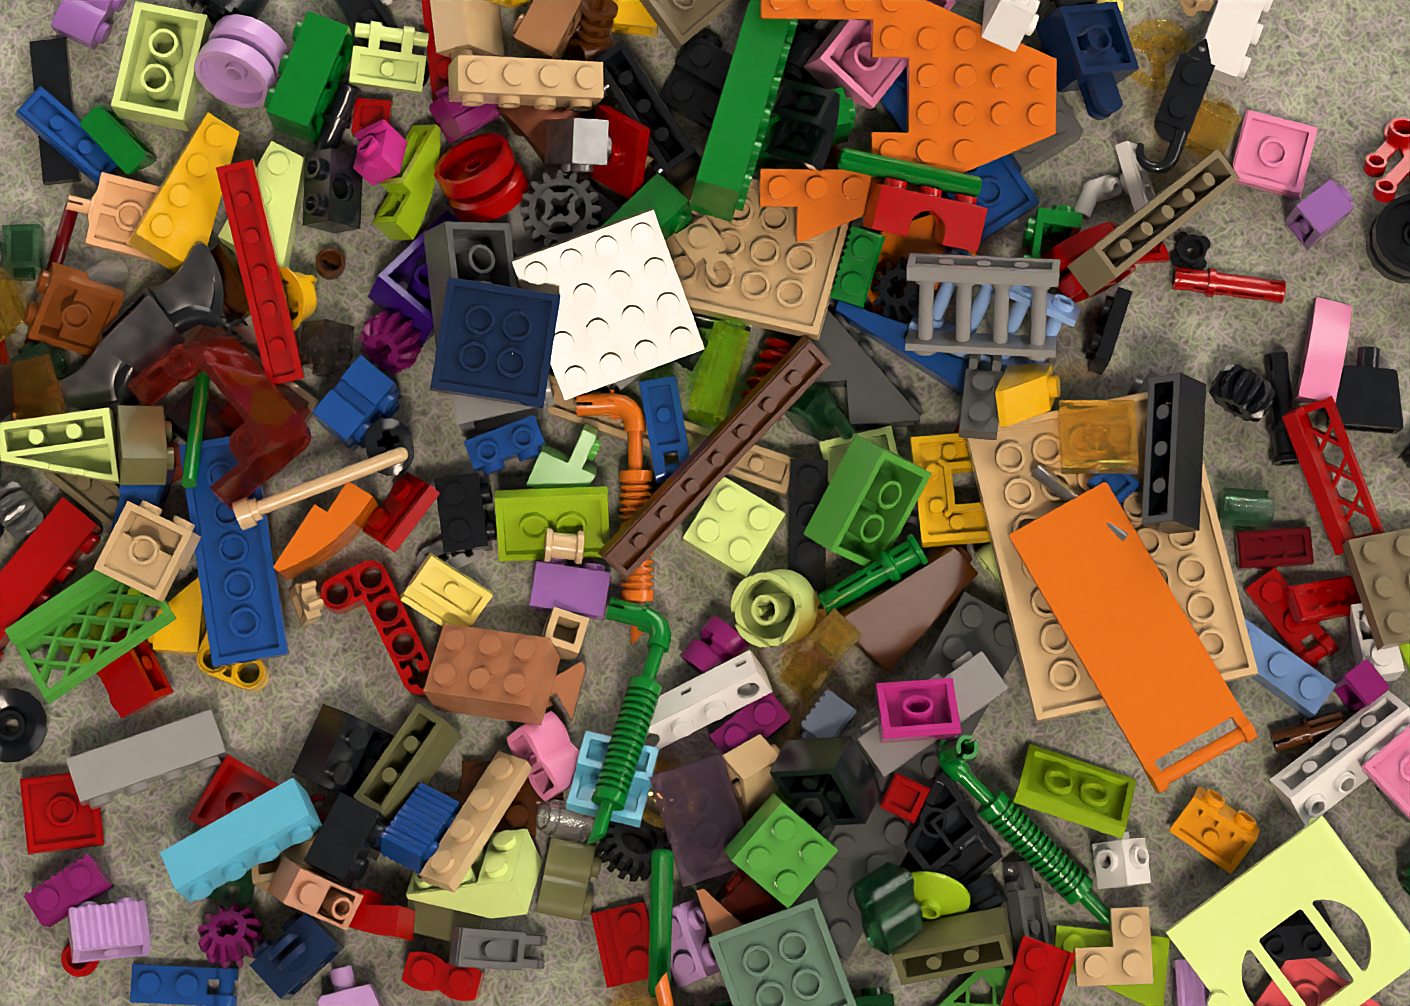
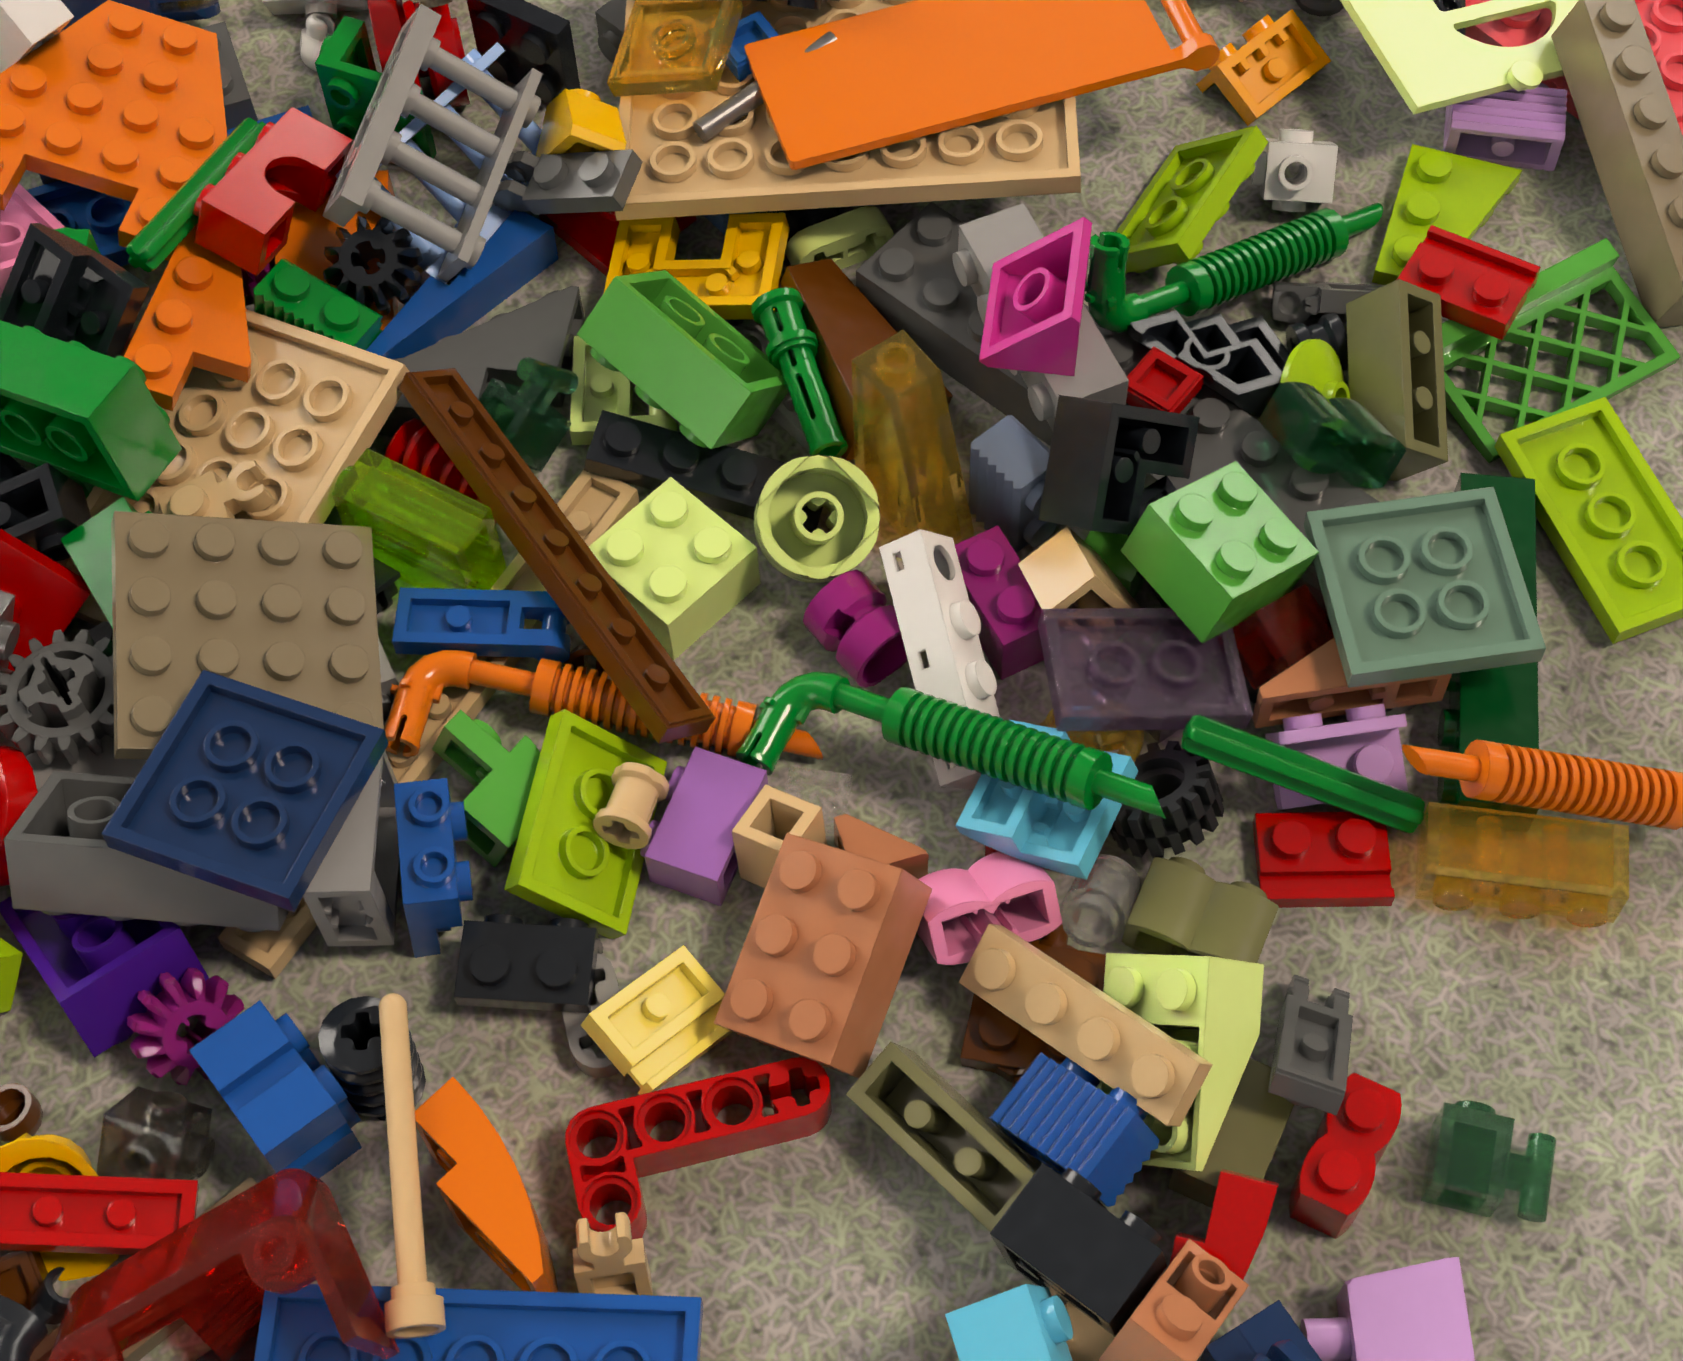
camera: 75 degrees left, 20 degrees down
(340, 751) = (905, 1255): black slope -> none
(400, 511) = (495, 1067): red plate -> none
(1126, 960) = (1436, 180): tan plate -> none

